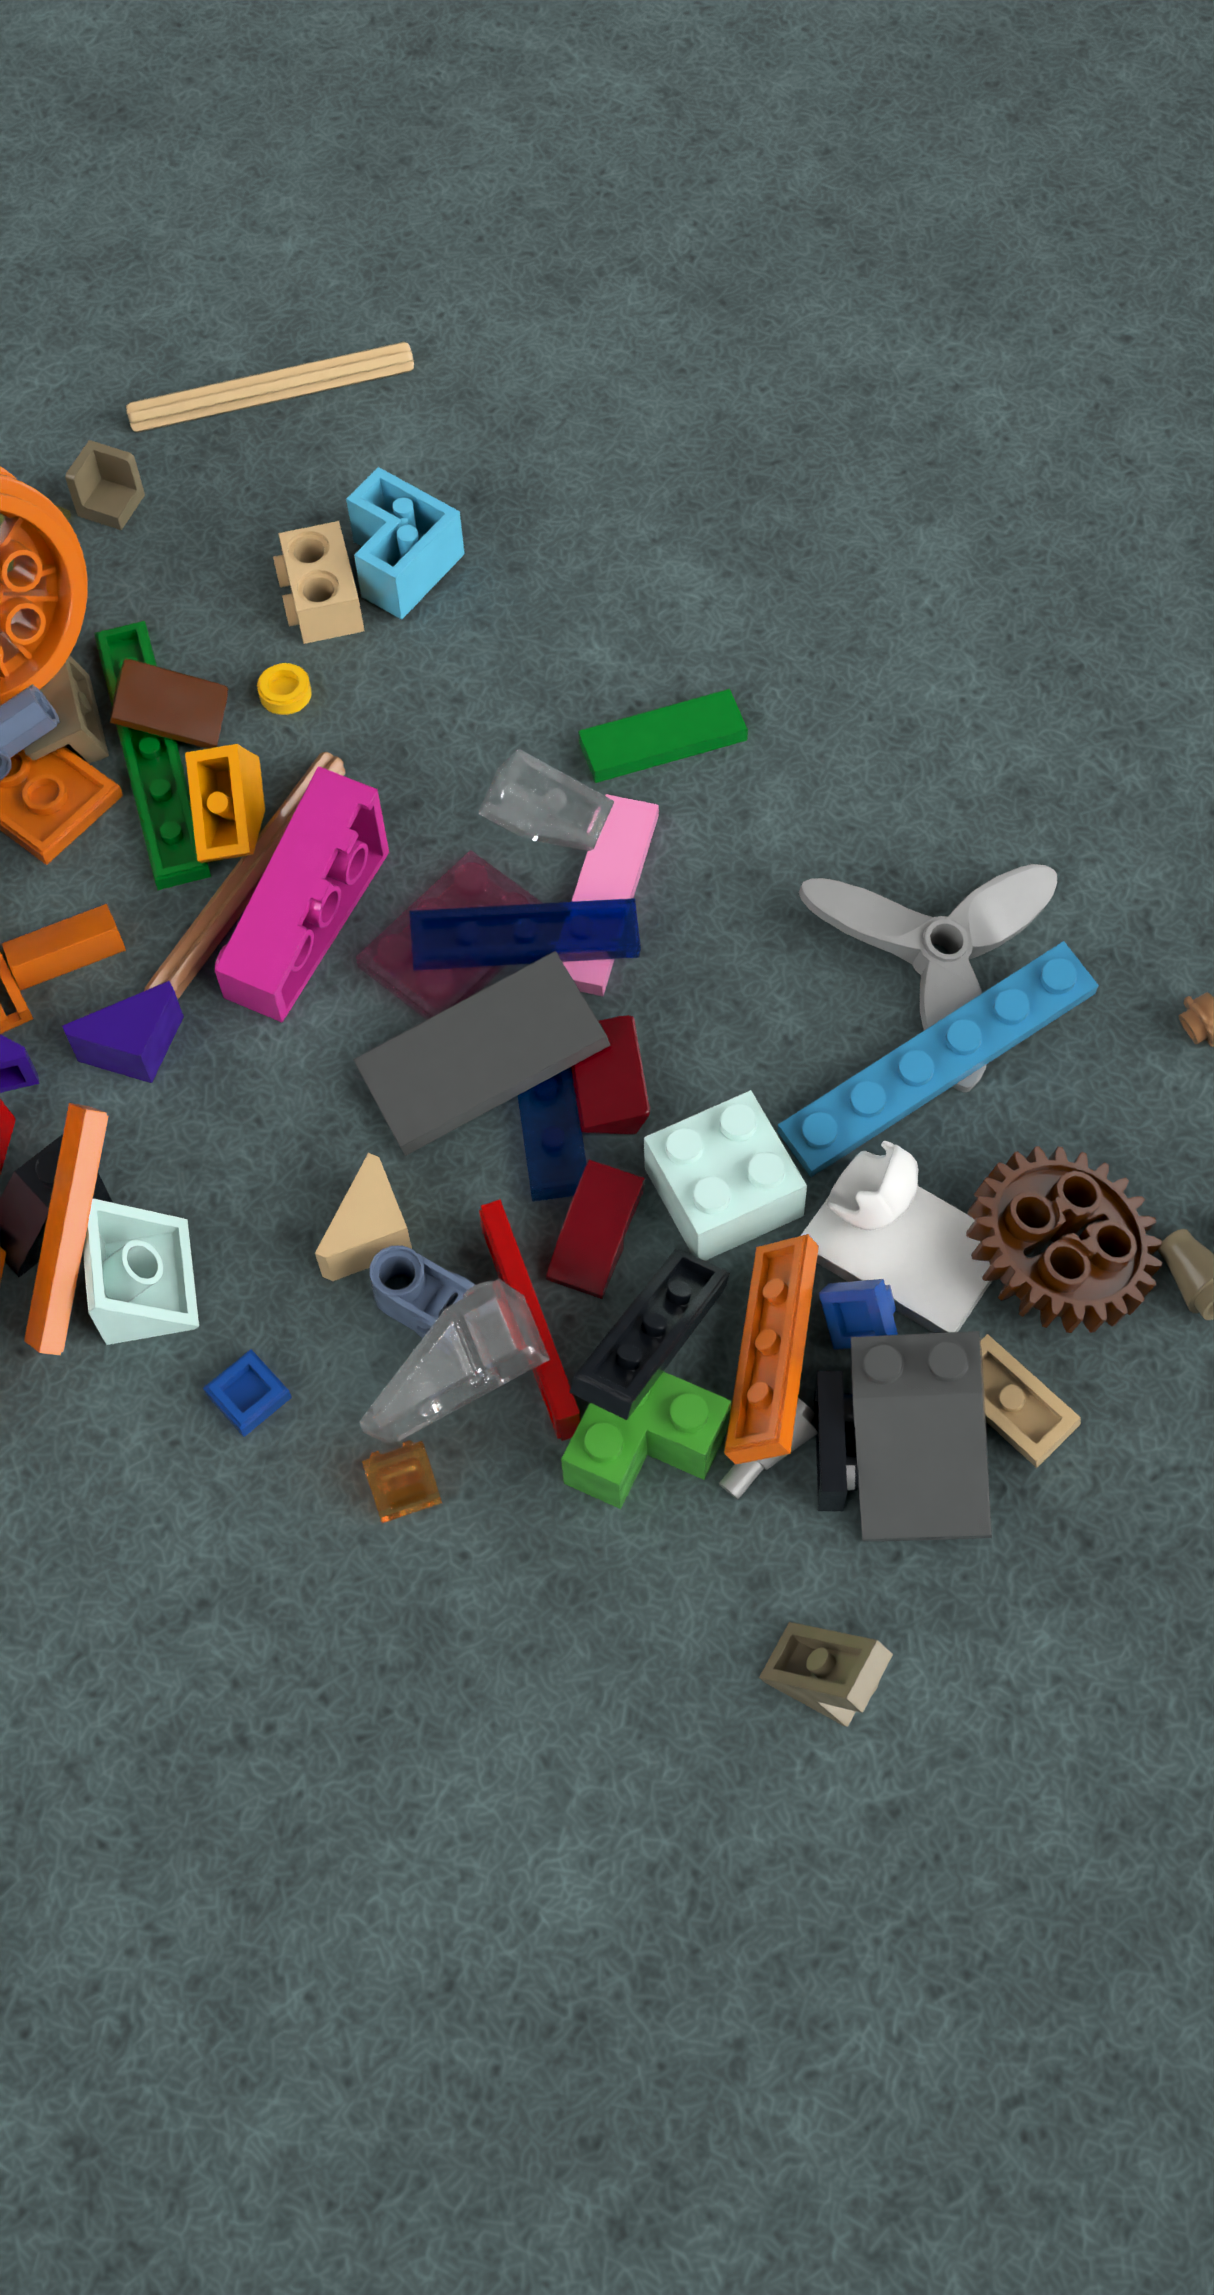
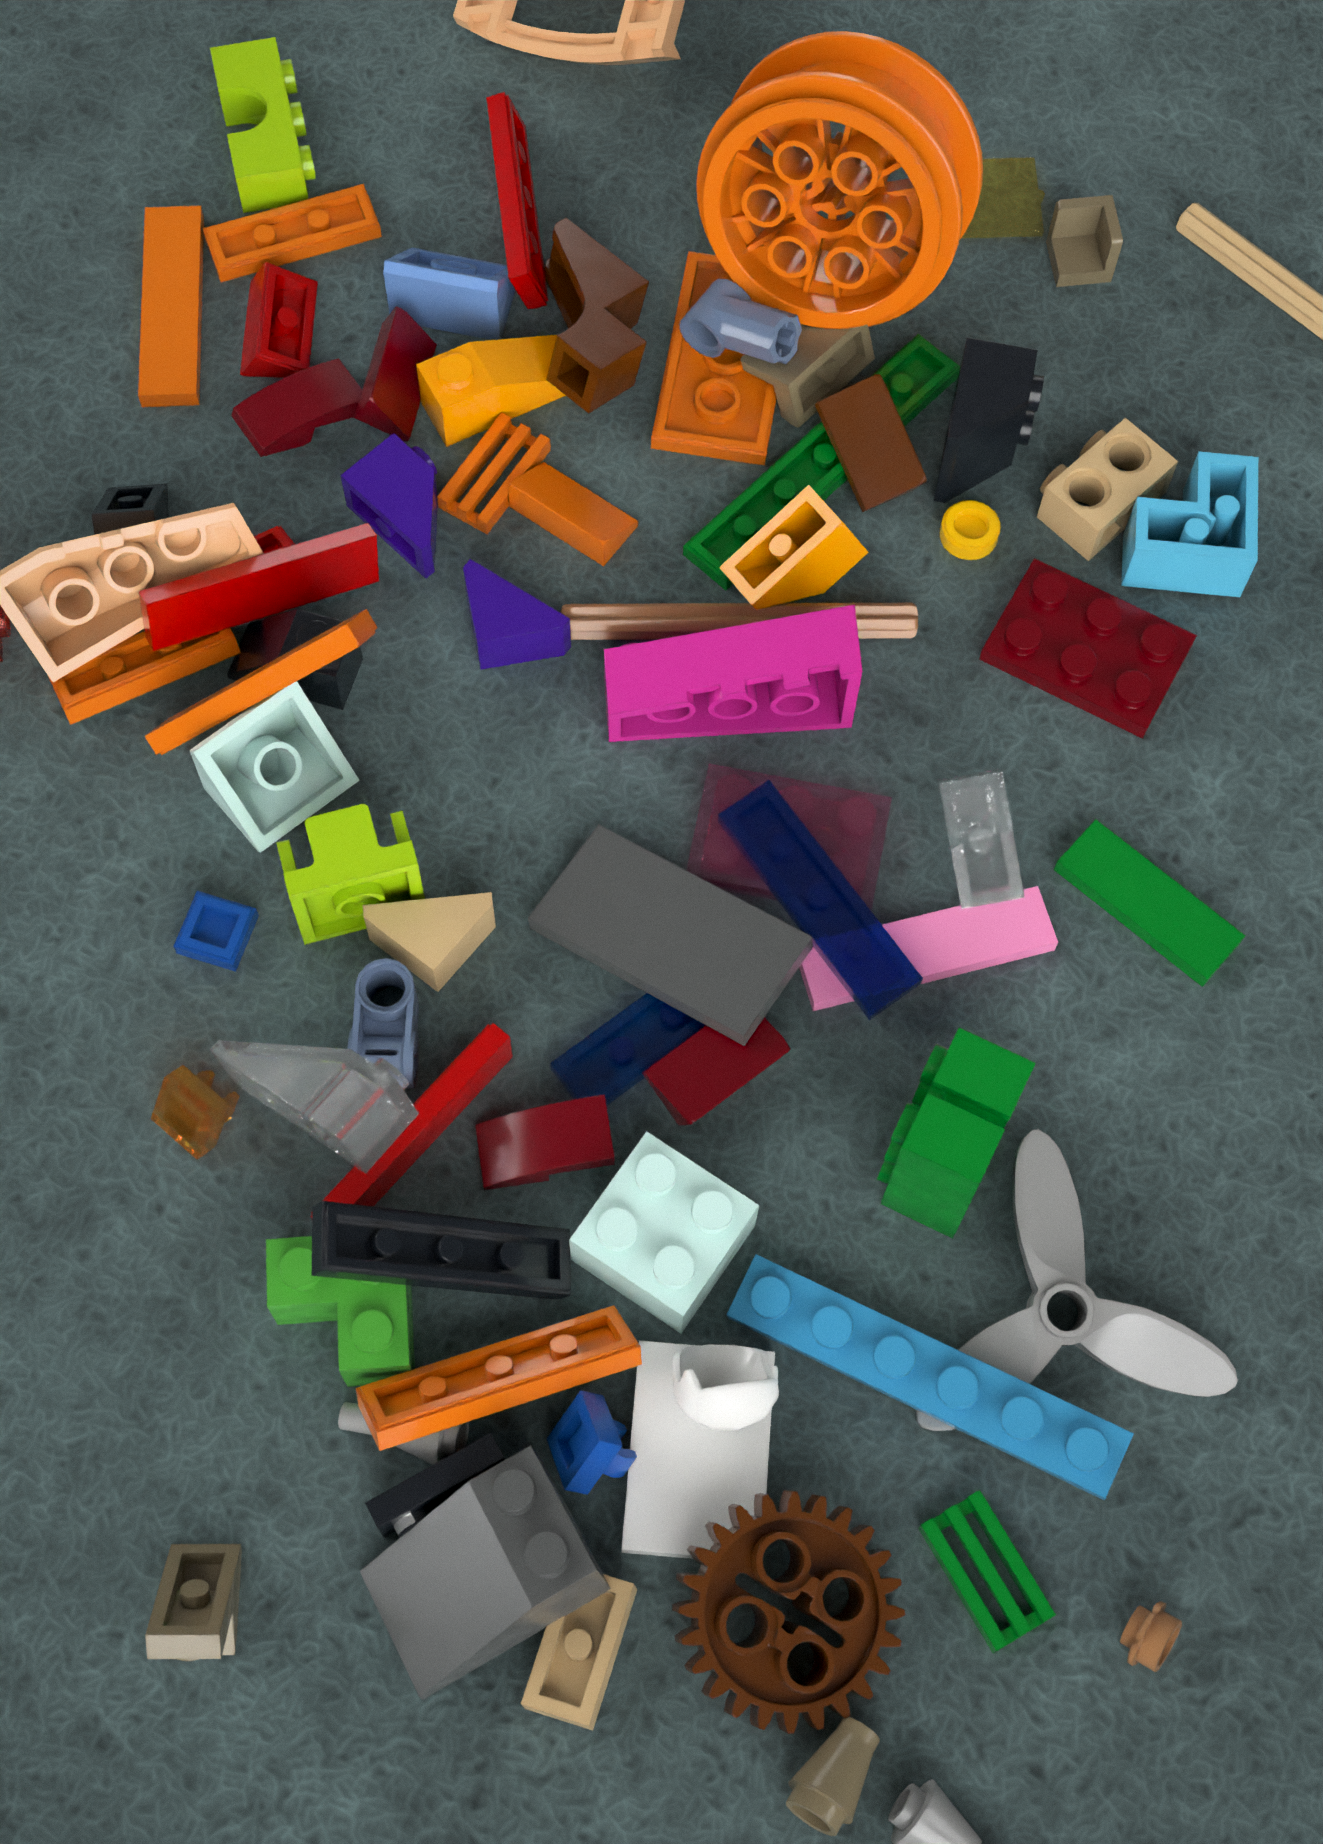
camera: 55 degrees right, 5 degrees up
(204, 616) = (988, 414): none -> black slope
(283, 1228) = (348, 872): none -> lime panel
(436, 666) = (1087, 647): none -> dark red plate
(780, 937) = (951, 1130): none -> green piece
(1100, 1091) = (1010, 1558): none -> green tile

